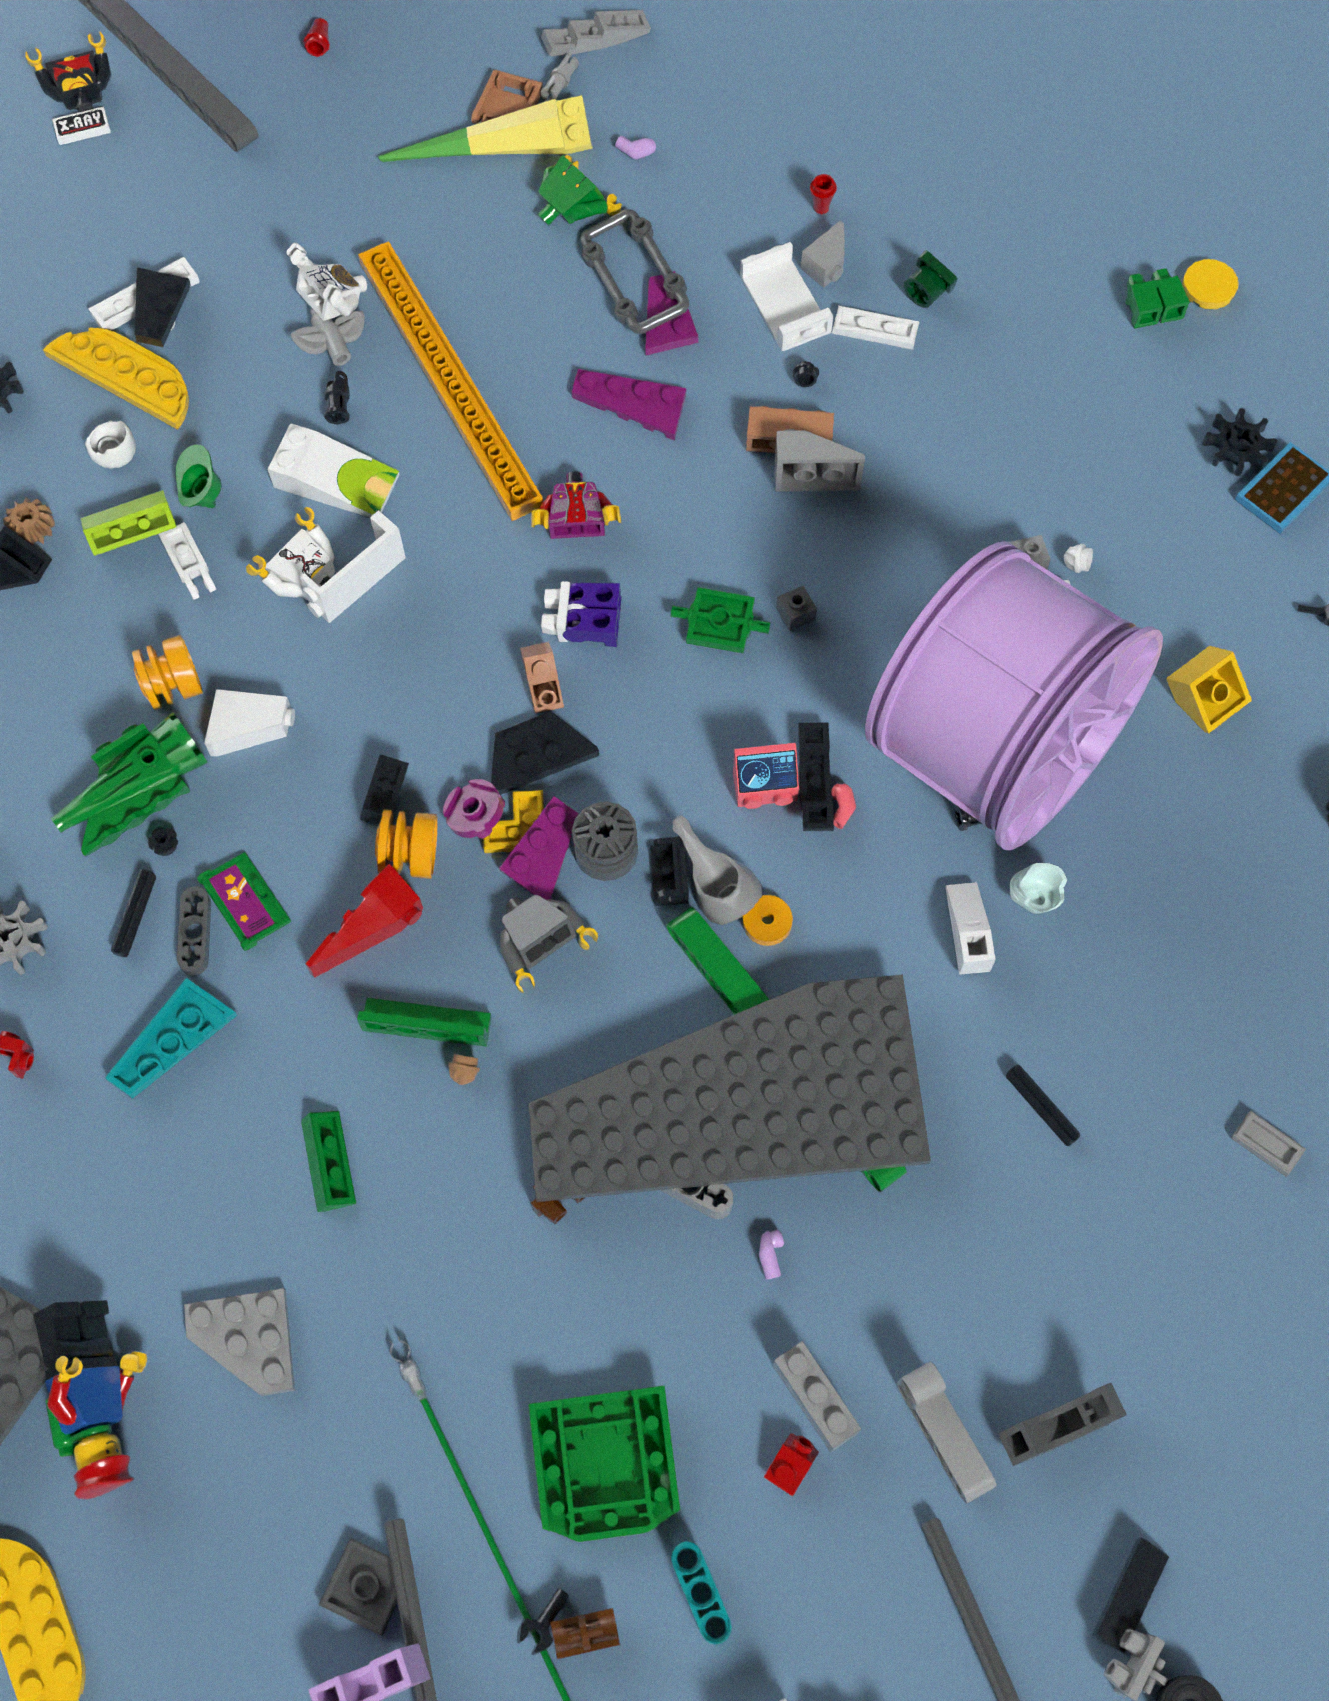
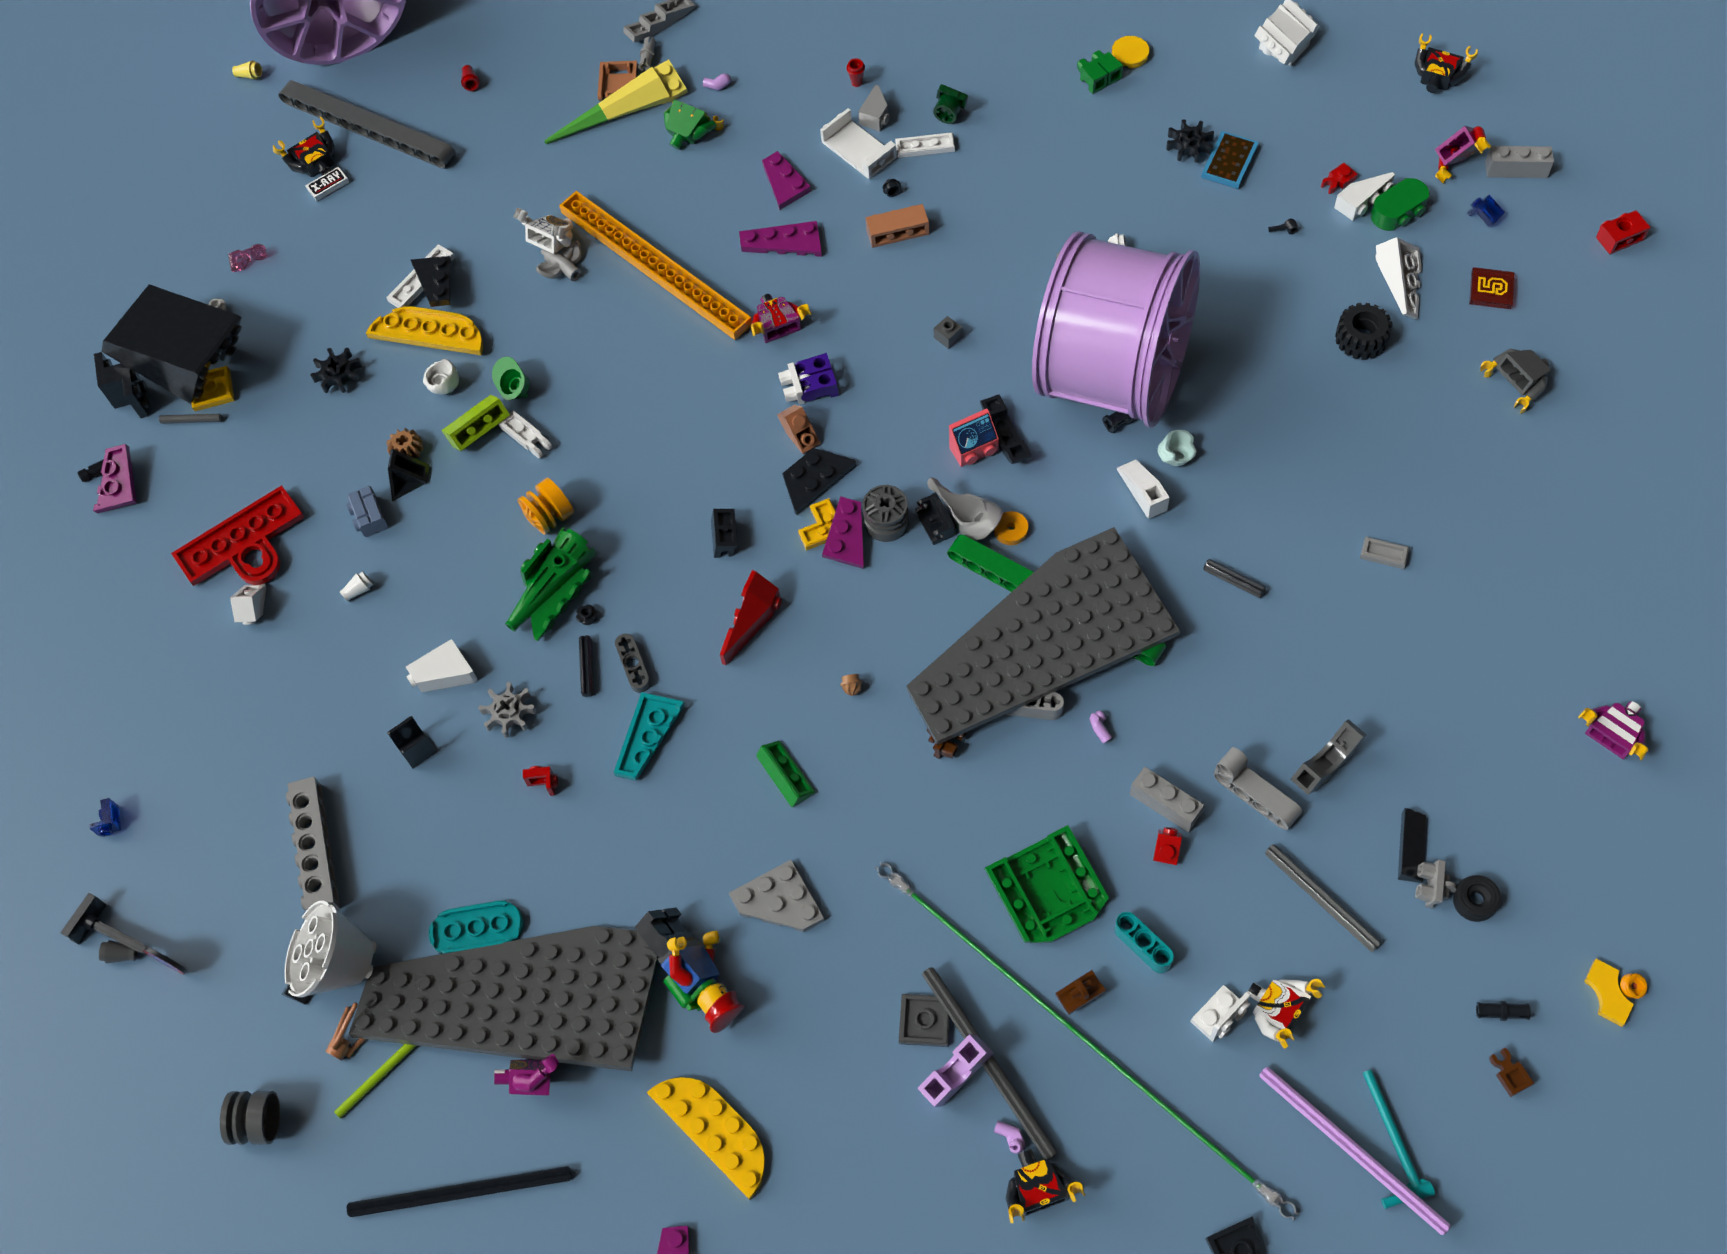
camera: 15 degrees left, 5 degrees down
(237, 893) = (651, 630): door -> none
(246, 720) = (611, 520): white slope -> none
(305, 553) = (606, 410): white torso -> none
(330, 472) = (600, 348): white slope -> none
(337, 396) = (583, 299): black piece -> none
(357, 575) = (634, 426): white panel -> none
(407, 843) = (756, 557): light orange wheel -> none
(425, 1022) = (813, 665): green fence -> none
(482, 820) = (793, 532): magenta plate -> none
(536, 931) = (864, 583): dark grey torso -> none
(542, 1624) = (1049, 999): black bar -> none
(625, 308) = (754, 183): dark grey bar -> none
(720, 620) = (901, 355): green plate -> none
(815, 463) = (923, 238): light grey slope -> none
(846, 804) = (1031, 439): coral arm -> none
(1210, 687) = (1234, 293): yellow slope -> none

